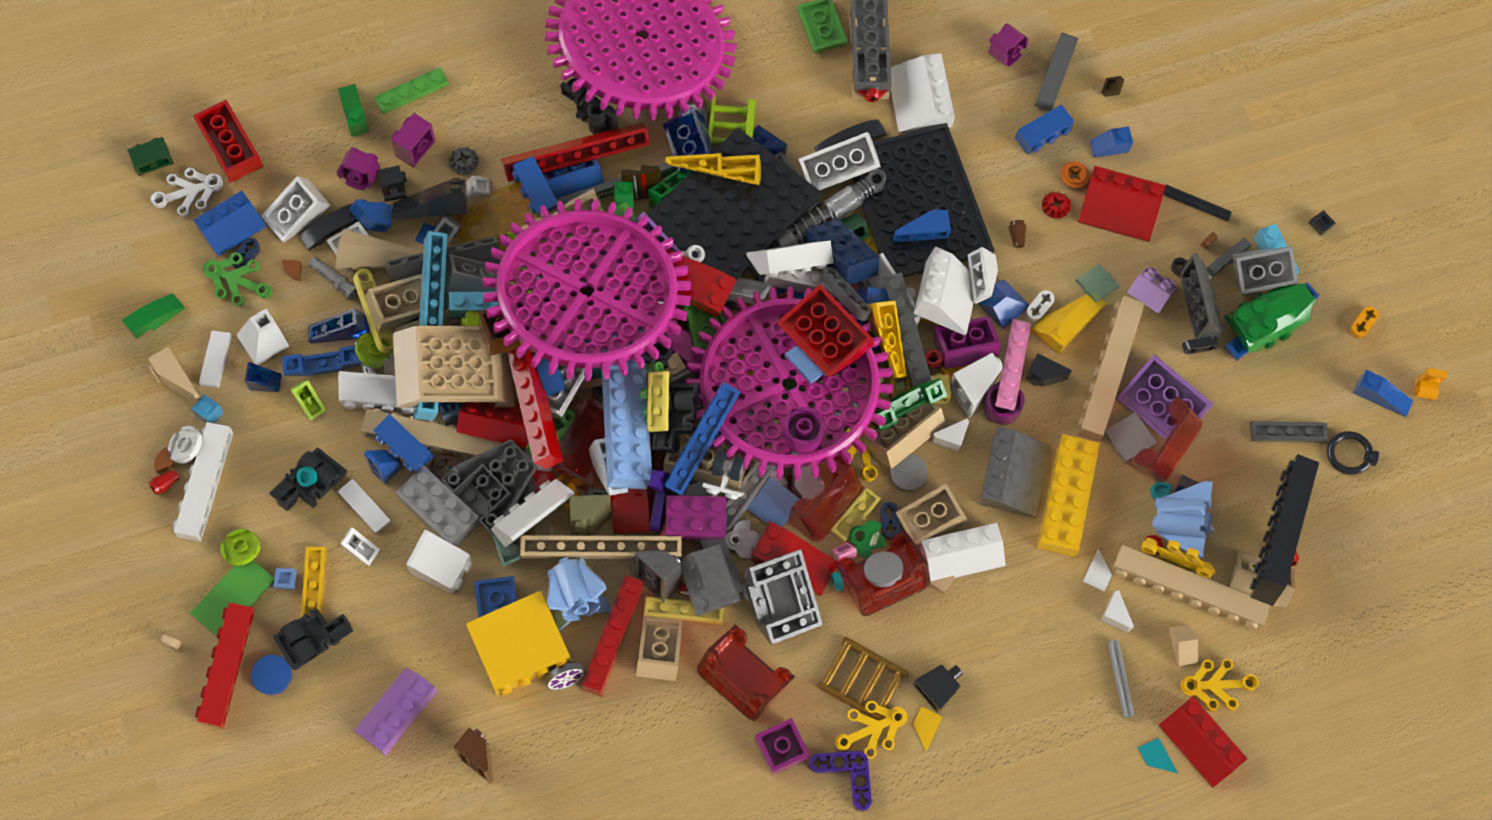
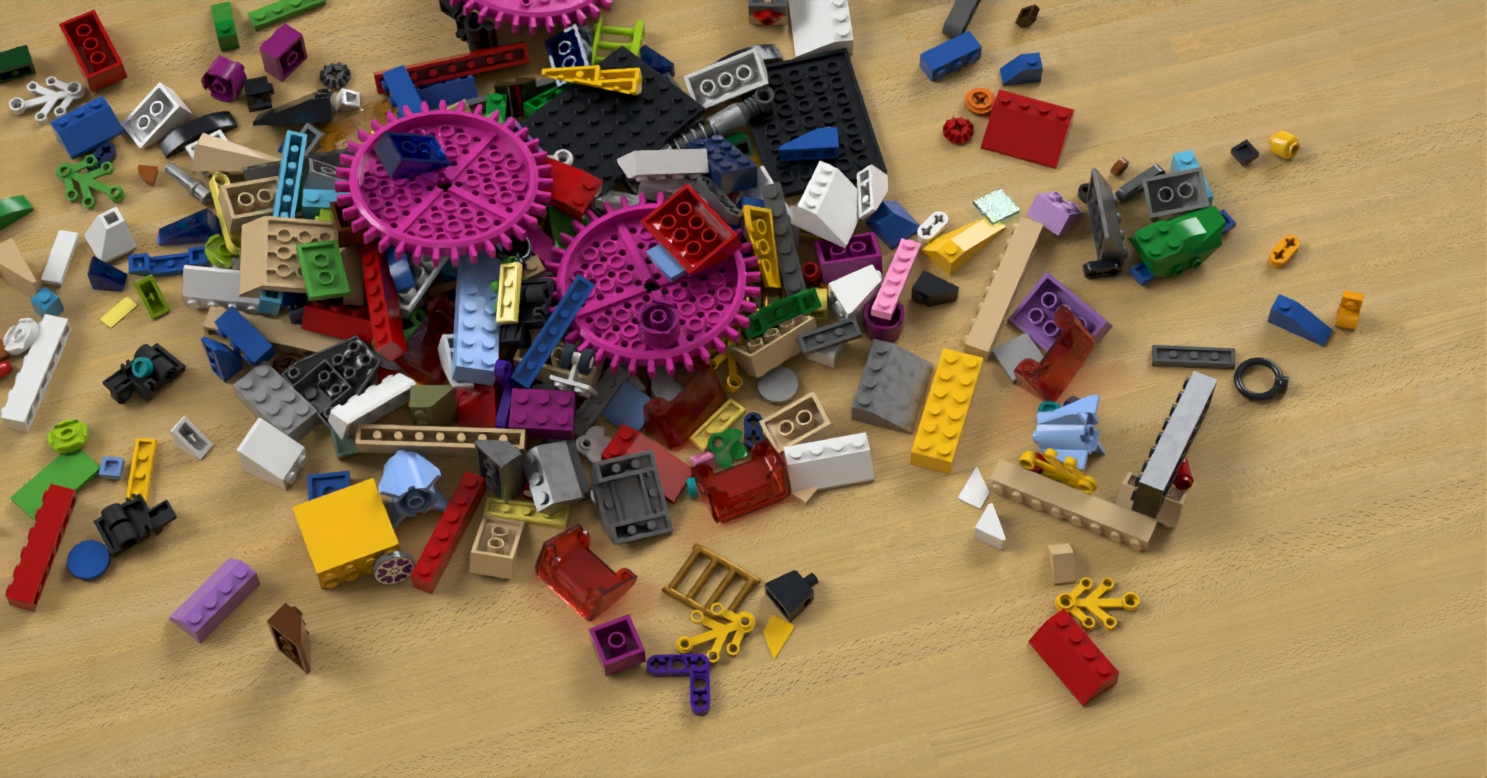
camera: 10 degrees right, 10 degrees down
(274, 416) = (118, 312): none -> light yellow sticker
(364, 506) = (200, 402): white tile -> none
(373, 215) = (234, 123): blue slope -> none
(476, 380) = (322, 270): none -> bright green plate
(554, 263) = (410, 154): none -> clear blue slope
(883, 569) = (741, 476): light grey tile -> none
(956, 426) = (829, 336): none -> dark grey plate
(1018, 233) = (914, 154): reddish brown cone -> none
(1121, 679) = (990, 593): light grey axle -> none
(1156, 756) = (1024, 672): teal sticker -> none
(1197, 202) = (1109, 130): black axle -> none
(1358, 214) = (1284, 144): none -> yellow head

